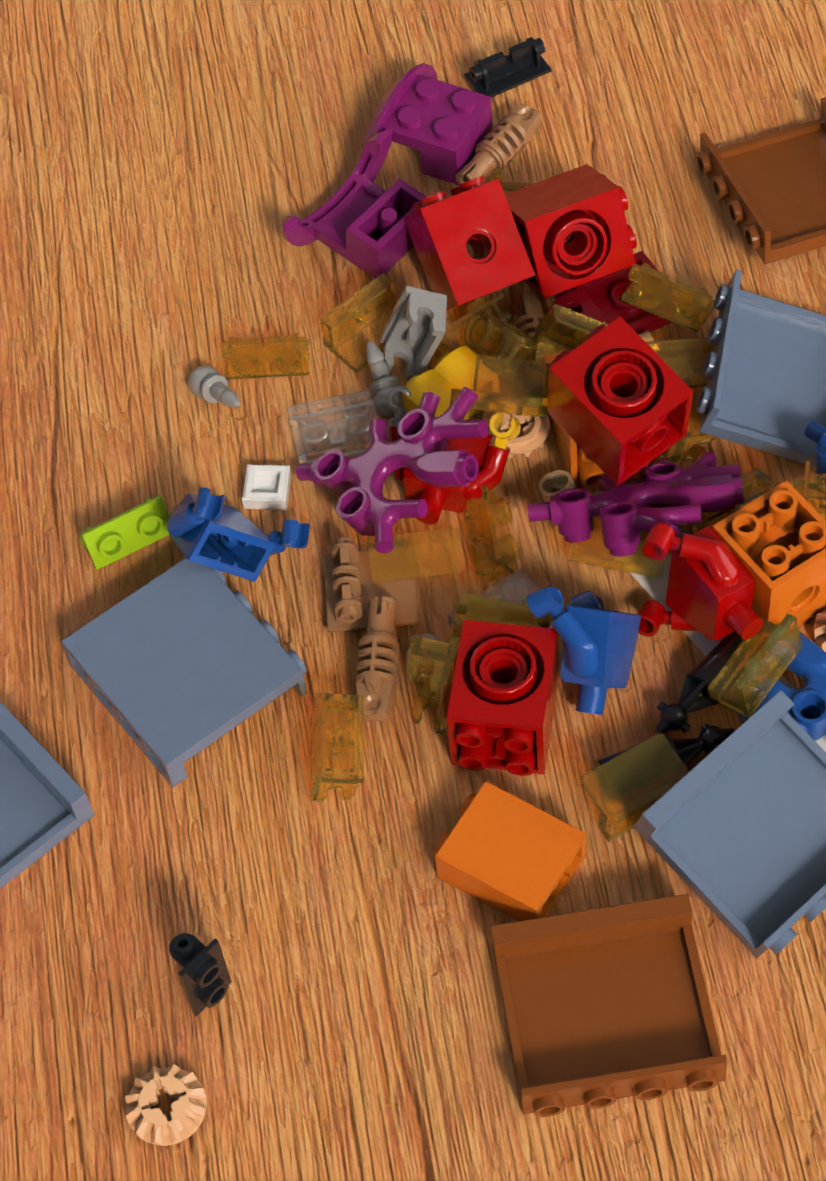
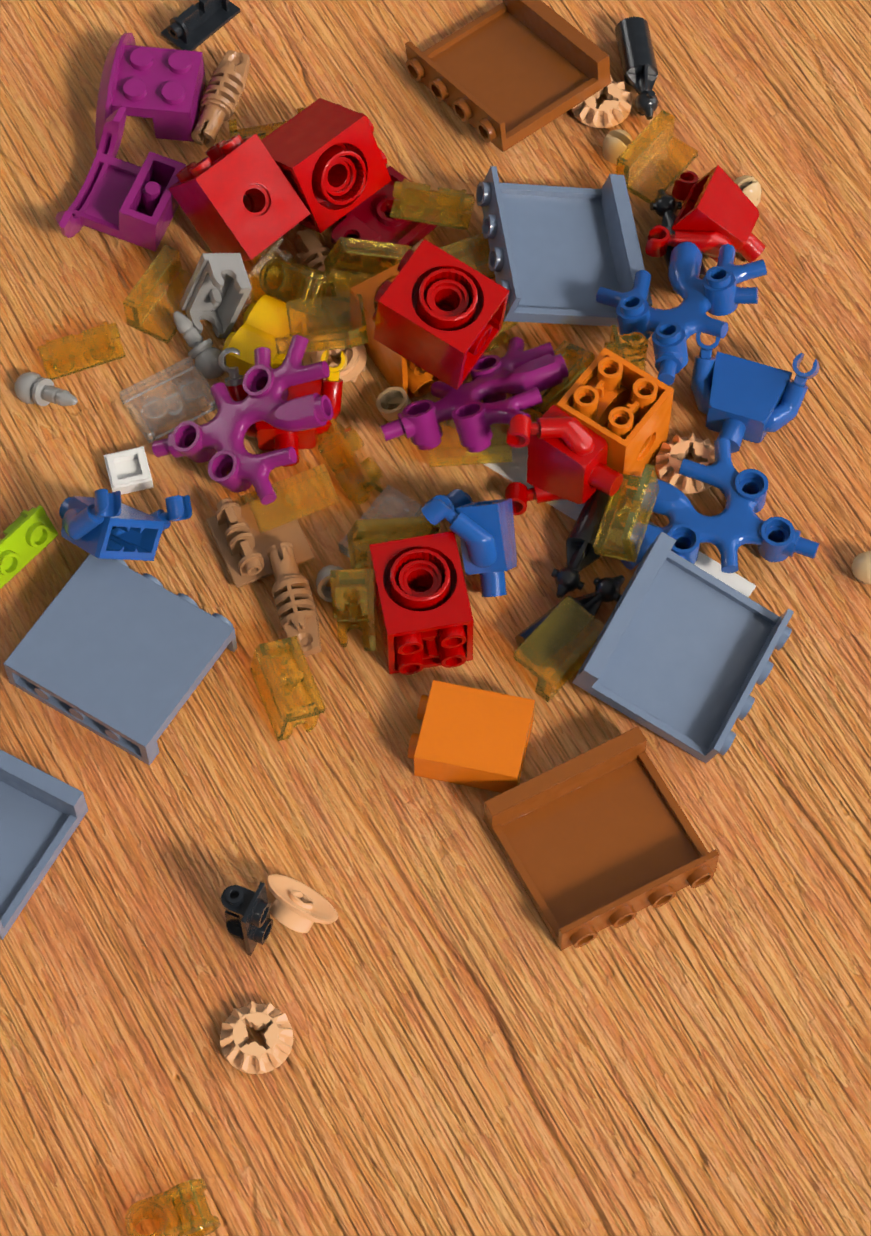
camera: 25 degrees left, 5 degrees up
(260, 975) = (298, 904): none -> light nougat piece

